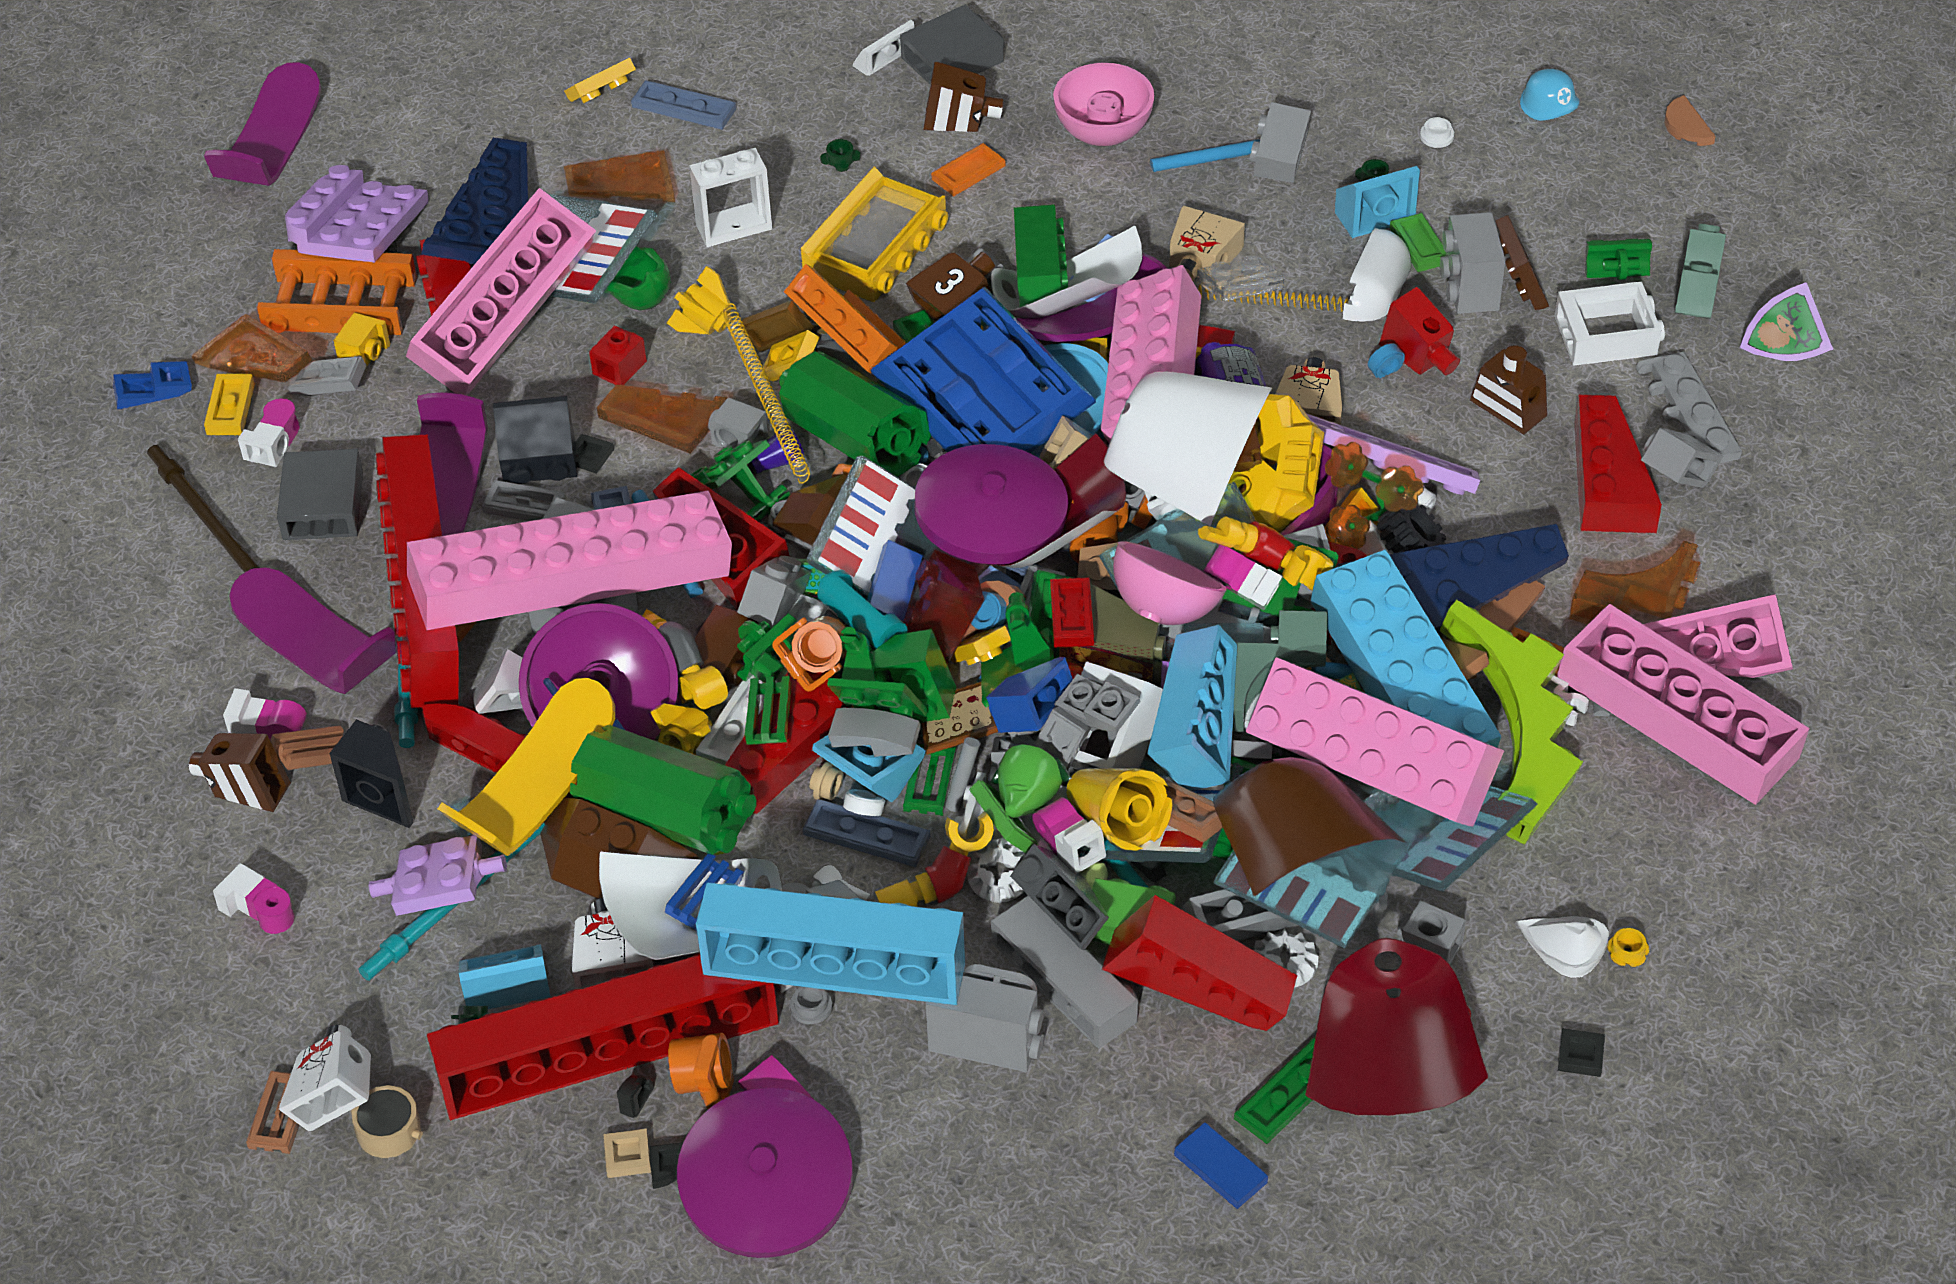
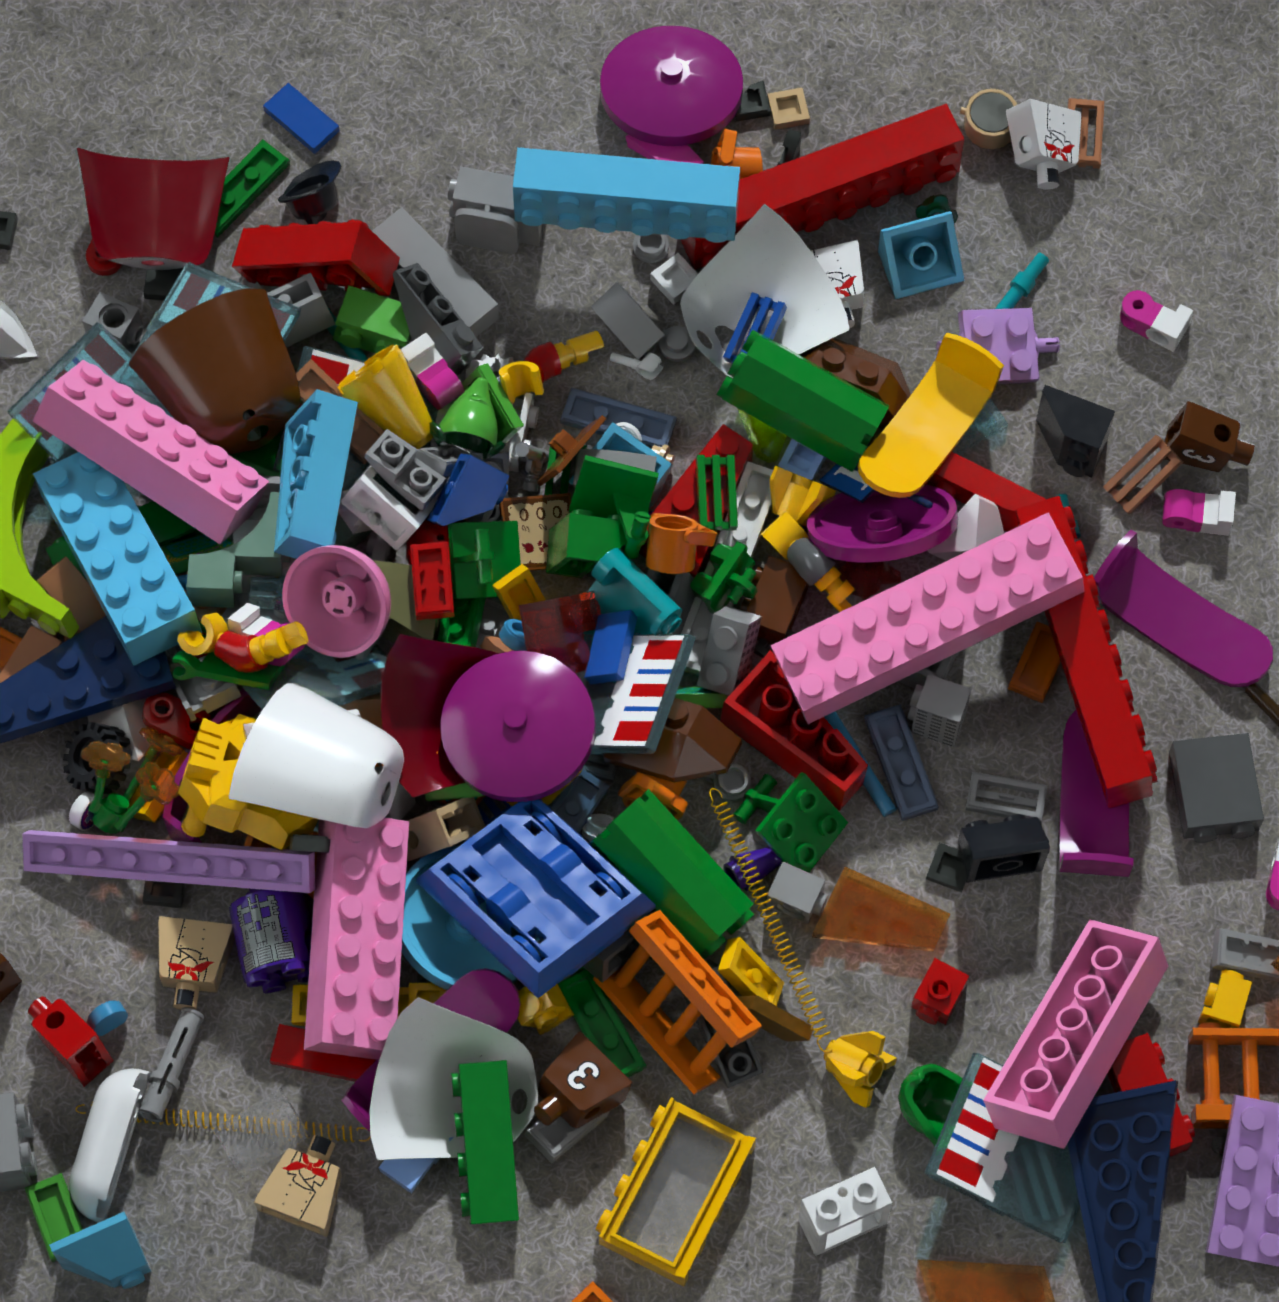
camera: 175 degrees right, 20 degrees up
(919, 760) = (568, 447): none -> dark orange piece
(1207, 1065) = (313, 192): none -> black piece
(1329, 314) = (155, 1103): none -> light grey pin

